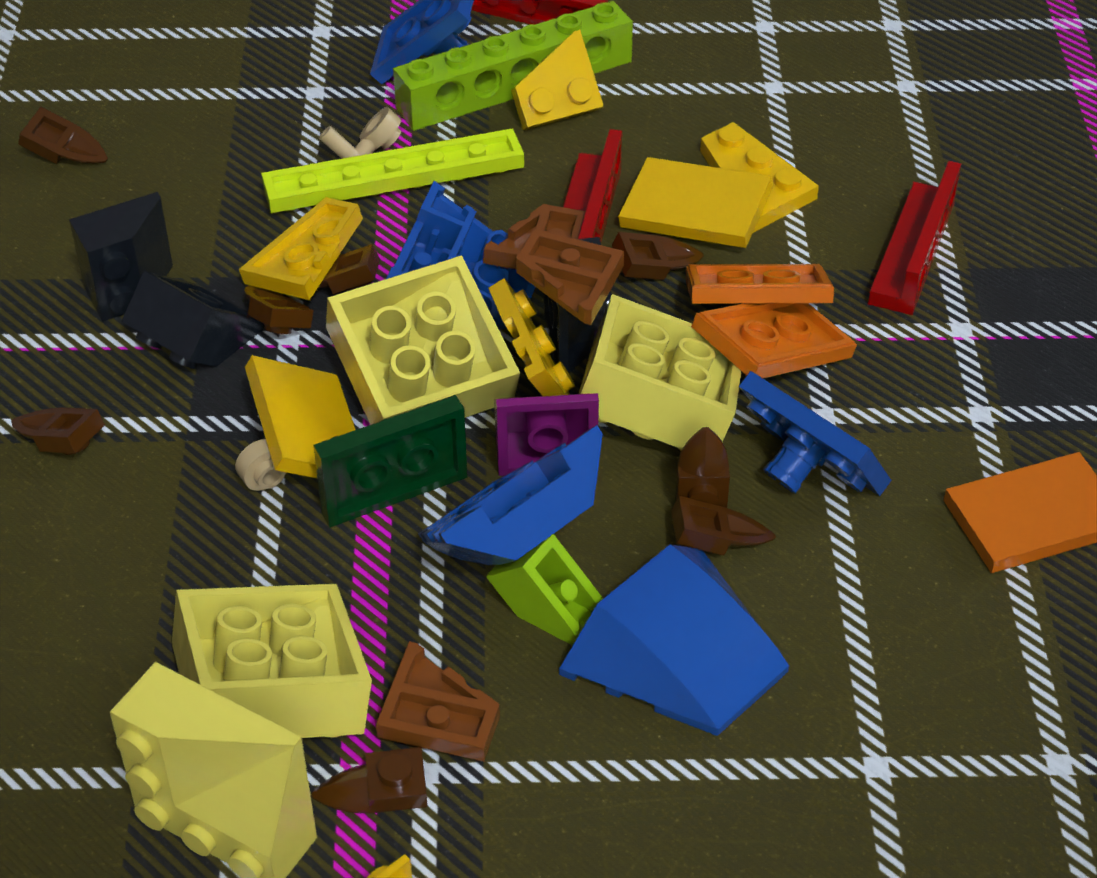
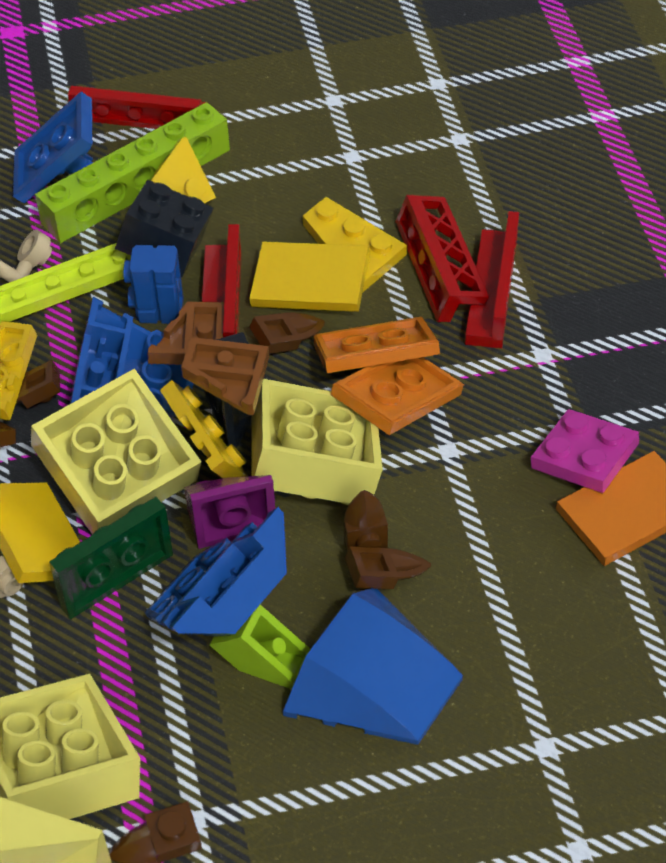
camera: 10 degrees left, 5 degrees up
(437, 709) = (193, 766): dark orange wing -> none
(509, 177) = (155, 283): none -> blue brick
(534, 123) = (165, 218): none -> black brick
(809, 441) = (443, 482): blue plate -> none
(843, 198) = (429, 255): none -> red fence
(992, 438) = (585, 450): none -> dark pink plate

